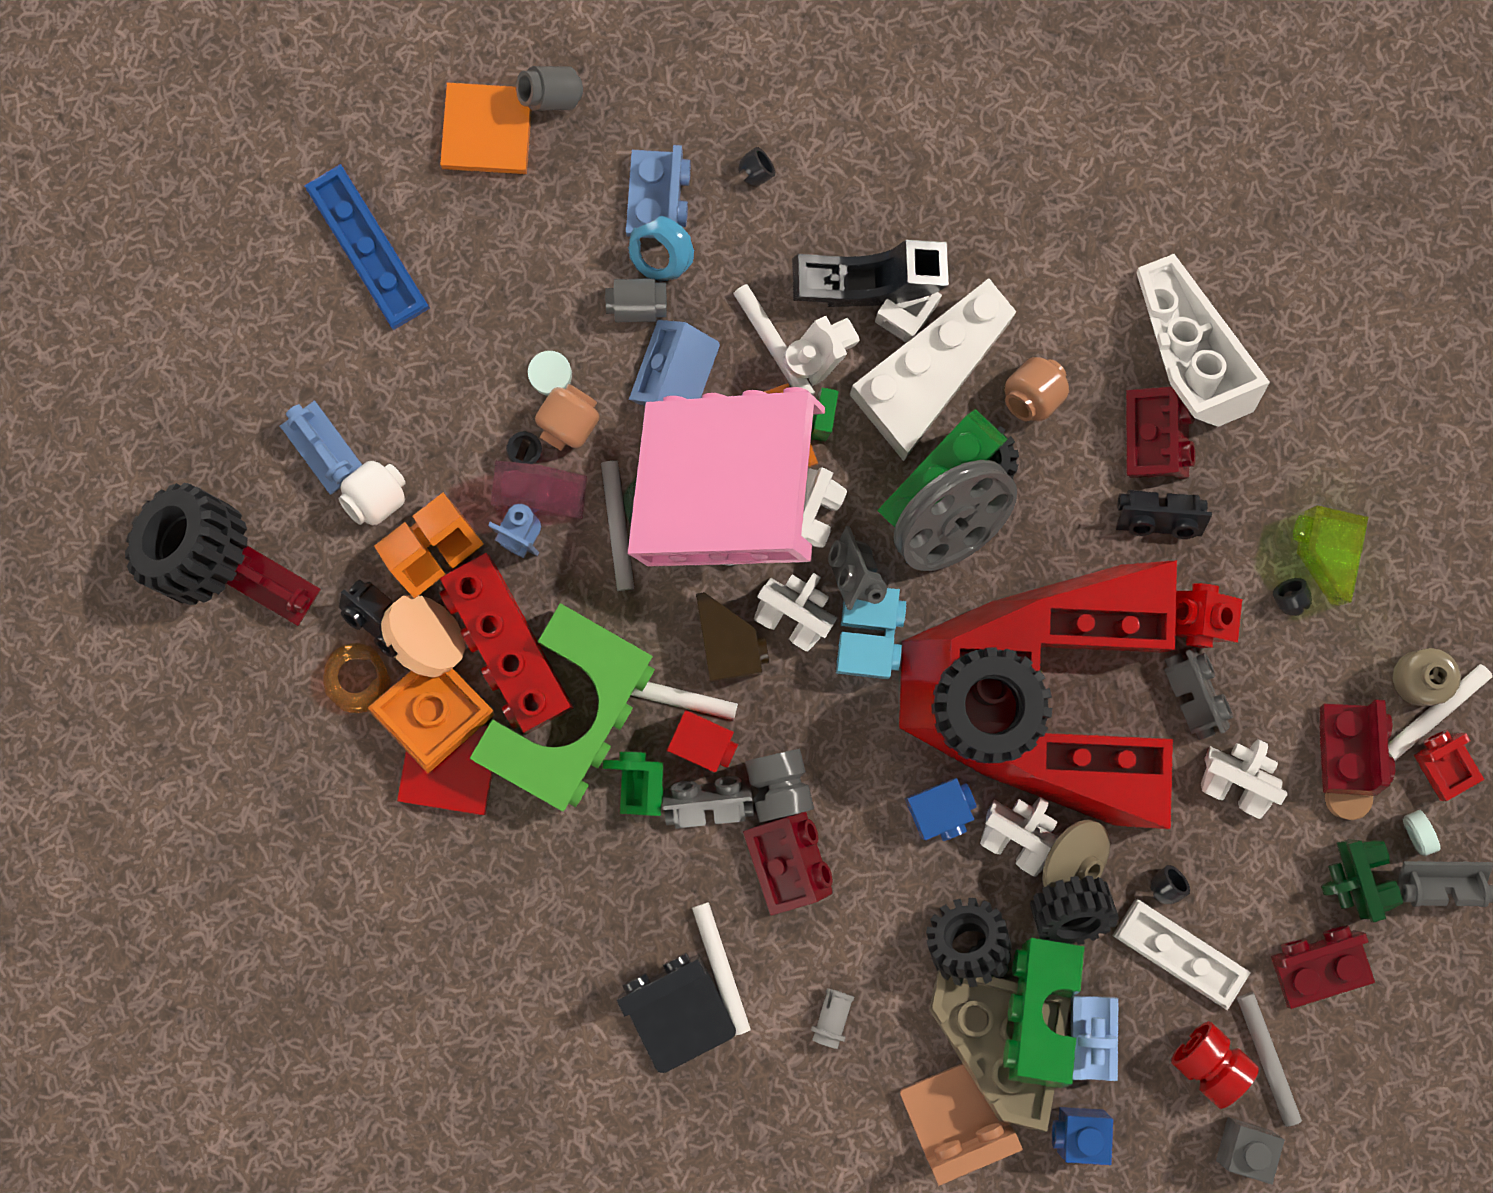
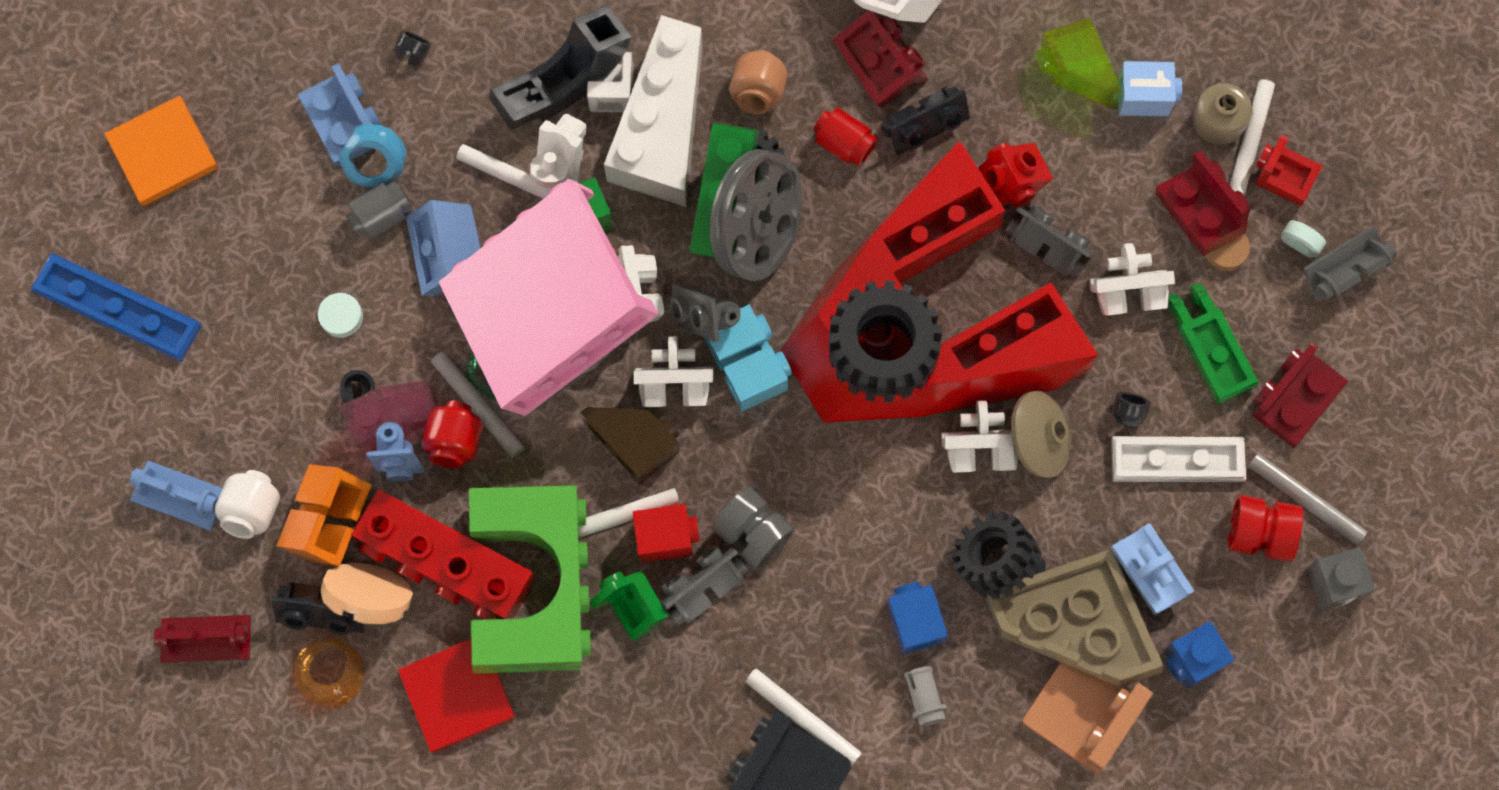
camera: 30 degrees left, 10 degrees down
(186, 544) = (108, 642): black tyre -> none
(431, 715) = (414, 657): orange tile -> none
(549, 88) = (196, 84): dark grey brick -> none
(567, 417) = (378, 339): nougat head -> none
(578, 541) = (452, 435): none -> red head
(789, 863) = (802, 589): dark red bracket -> none
(868, 949) = (916, 617): none -> blue brick
(942, 809) = (902, 464): blue brick -> none
(1036, 1051) = (1110, 603): green arch -> none
(1074, 910) = (1065, 474): black tyre -> none
(1080, 486) = (844, 136): none -> red brick
(1277, 876) = (1213, 346): none -> green hinge
(1300, 598) = (1079, 120): black hinge -> none
(1358, 860) = (1277, 309): dark green hips -> none
(1377, 612) = (1148, 88): none -> light blue brick

